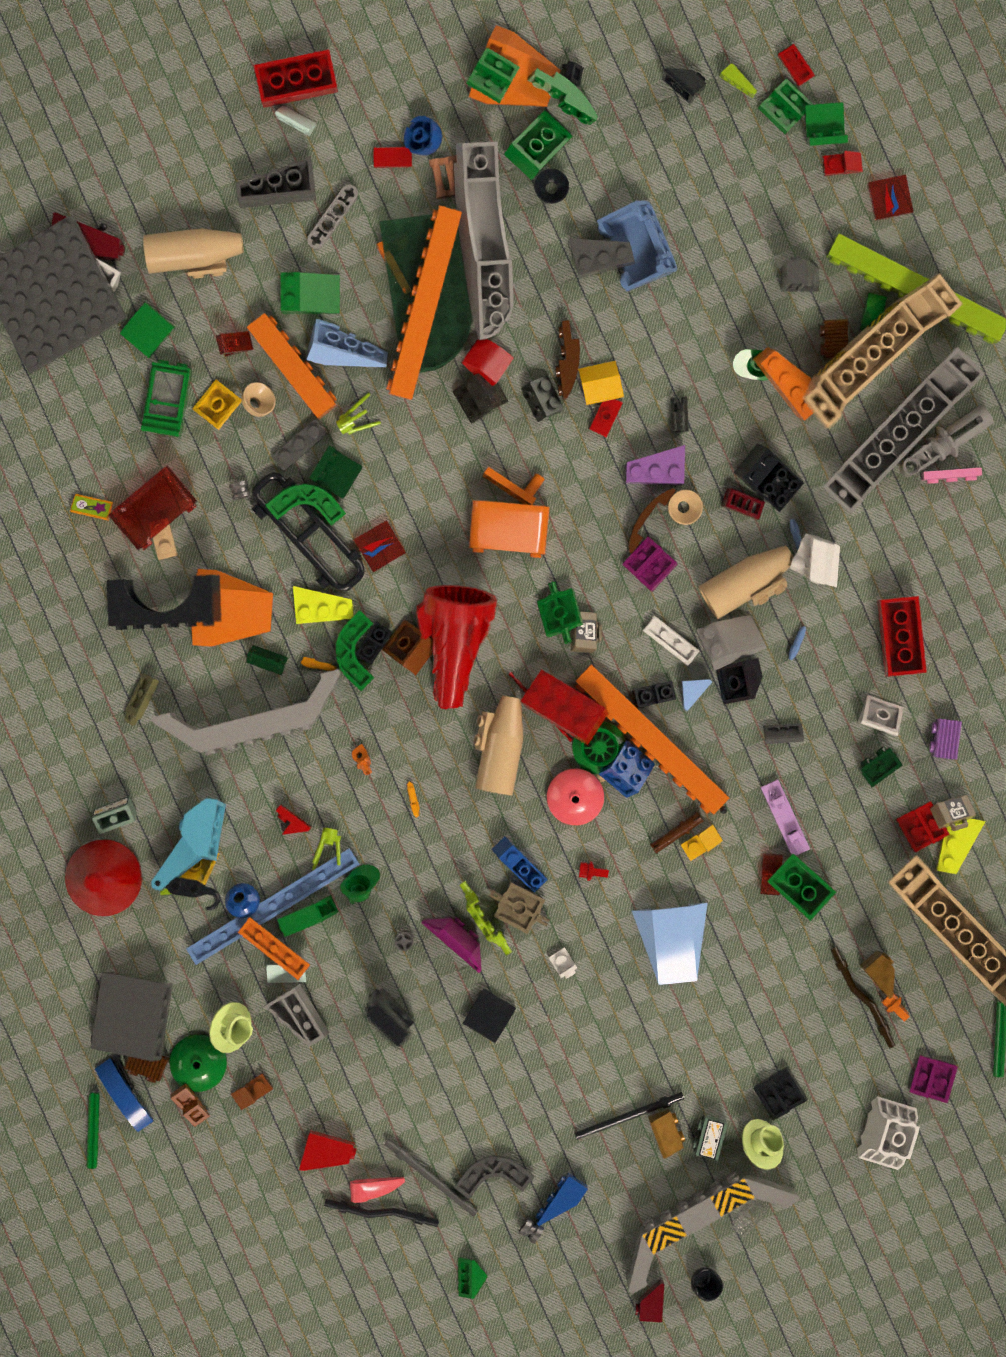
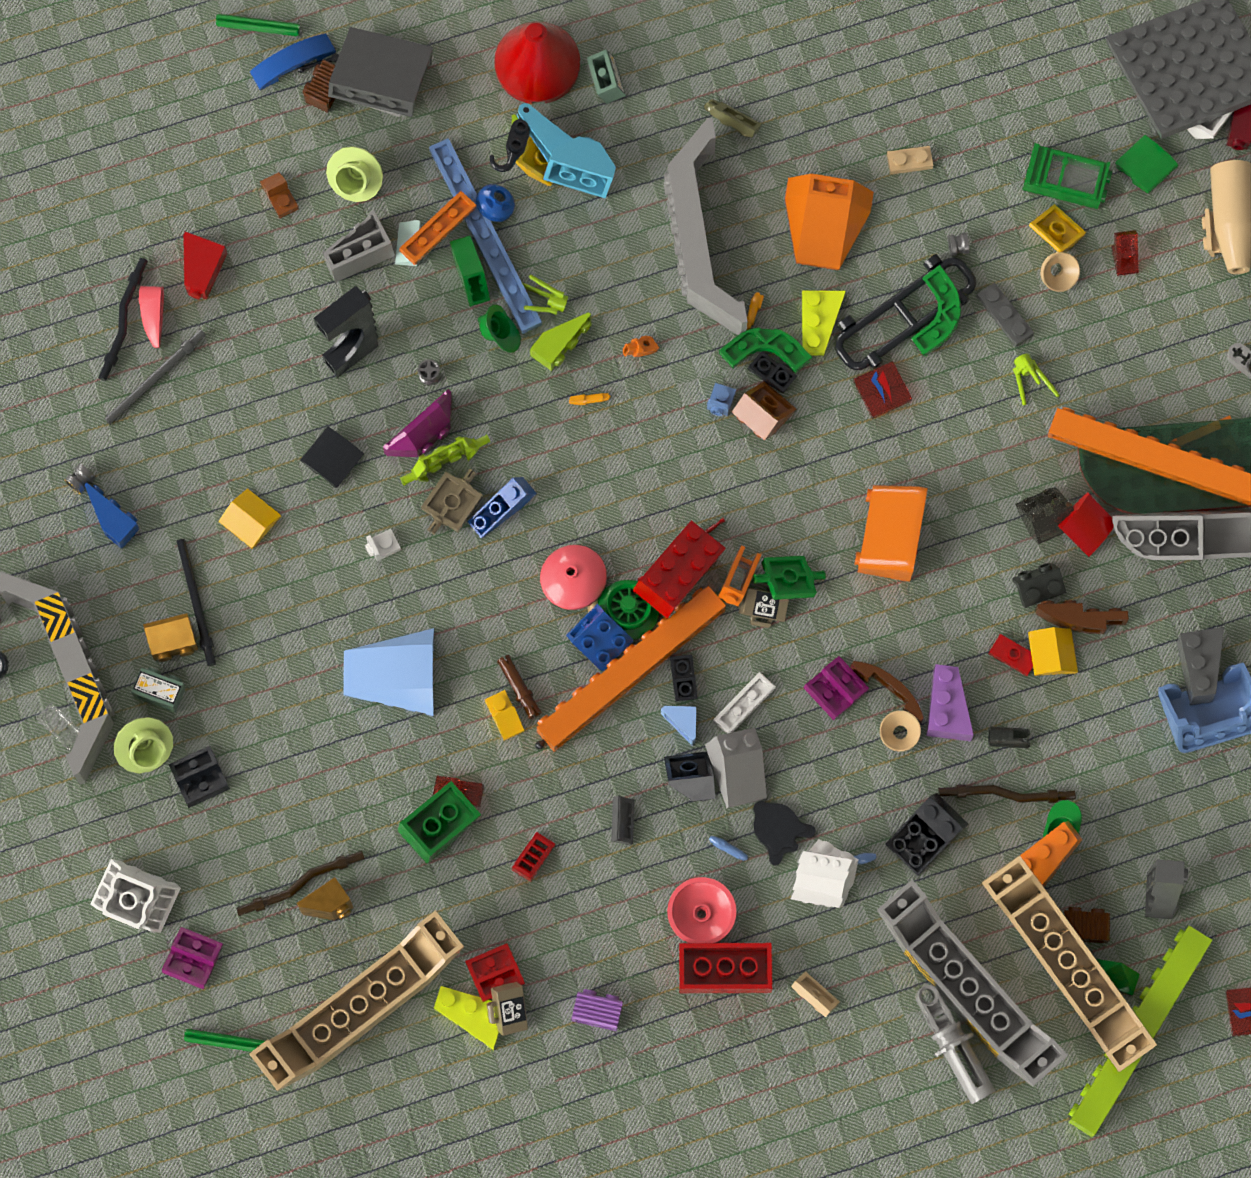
camera: 90 degrees right, 15 degrees down
(91, 507) = (951, 88): slope -> none
(153, 507) = (946, 146): clear red windscreen -> none
(191, 1106) = (270, 129): dark orange slope -> none
(197, 1049) = (314, 153): green dish -> none
(200, 606) = (831, 179): black arch -> none
(266, 659) = (764, 255): dark green hinge -> none
(292, 367) = (1095, 312): orange brick -> none
(296, 824) = (577, 267): red slope -> none
(310, 293) = (1177, 339): green slope -> none
(336, 472) = (972, 347): dark green bracket -> none
(337, 348) = (1113, 363): light blue wedge -> none
(367, 834) = (554, 343): none -> lime slope
(403, 685) = (721, 400): none -> medium blue bracket
(458, 624) = (789, 455): red cone -> none
(470, 1278) = (34, 408): green slope -> none
(493, 1167) = (157, 447): dark grey plate -> none
(501, 745) = (640, 496): tan piece -> none
(524, 496) = (928, 556): orange piece -> none
(549, 1079) = (249, 518): none -> yellow slope
(565, 655) = (738, 578): none -> orange window
(588, 870) = (486, 582): red piece -> none
(726, 376) = (962, 791): none -> dark brown bar
(728, 497) = (913, 788): dark red slope -> none
(750, 579) = (807, 793): tan piece -> none
(779, 607) = (778, 828): none -> black tile
(784, 817) = (522, 814): lavender hinge -> none
(835, 813) = (529, 875): none -> red slope
(870, 660) = (706, 896): none -> coral dish
(880, 766) = (572, 929): dark green bracket -> none
(881, 715) = (632, 937): white slope -> none
(894, 1004) = (287, 917): orange piece -> none
(914, 559) = (815, 994): none -> tan plate
(951, 475) = (912, 1048): bright pink plate -> none

